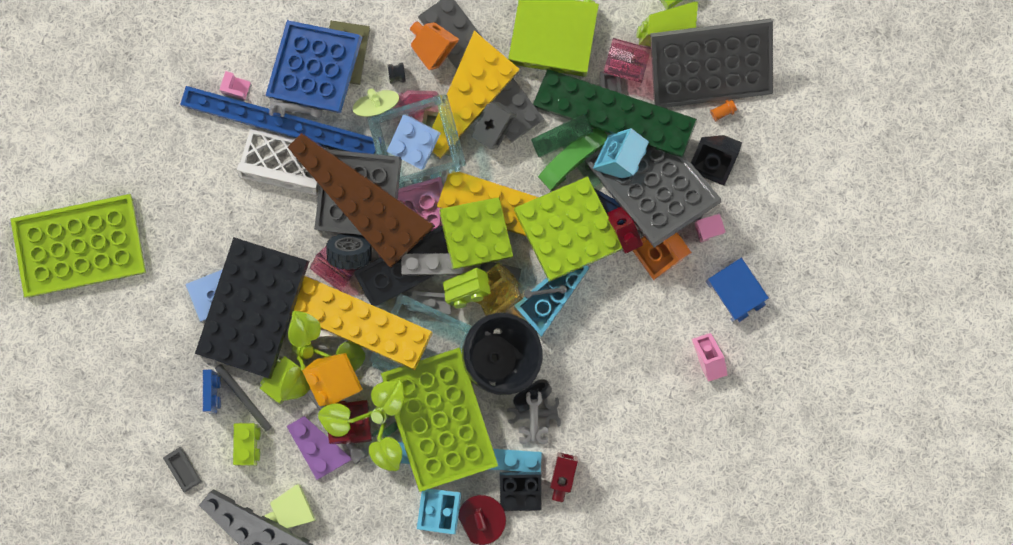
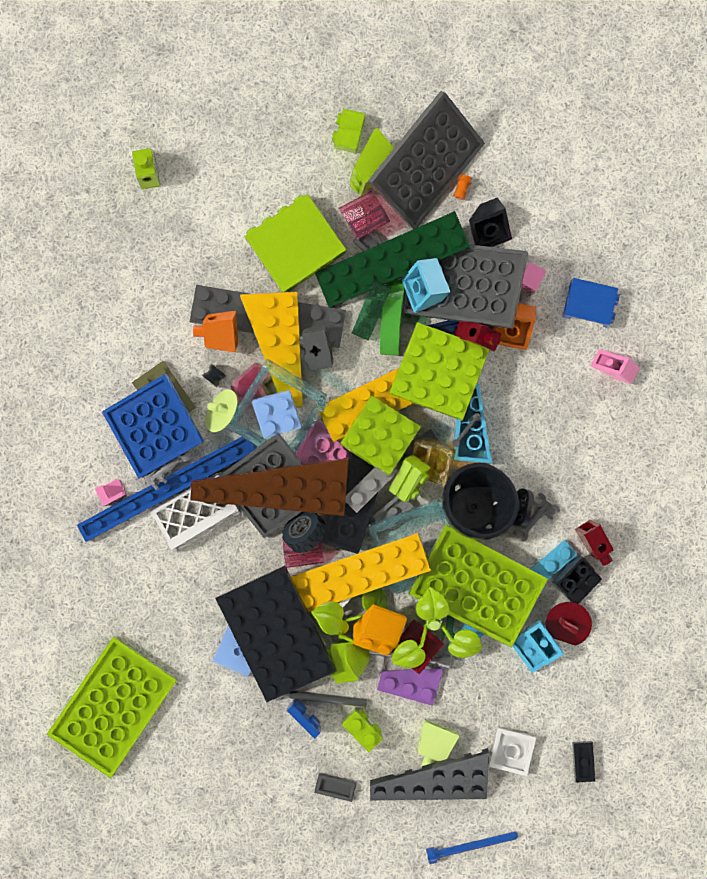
camera: 45 degrees left, 5 degrees up
(533, 434) = (547, 532): light grey bar -> none

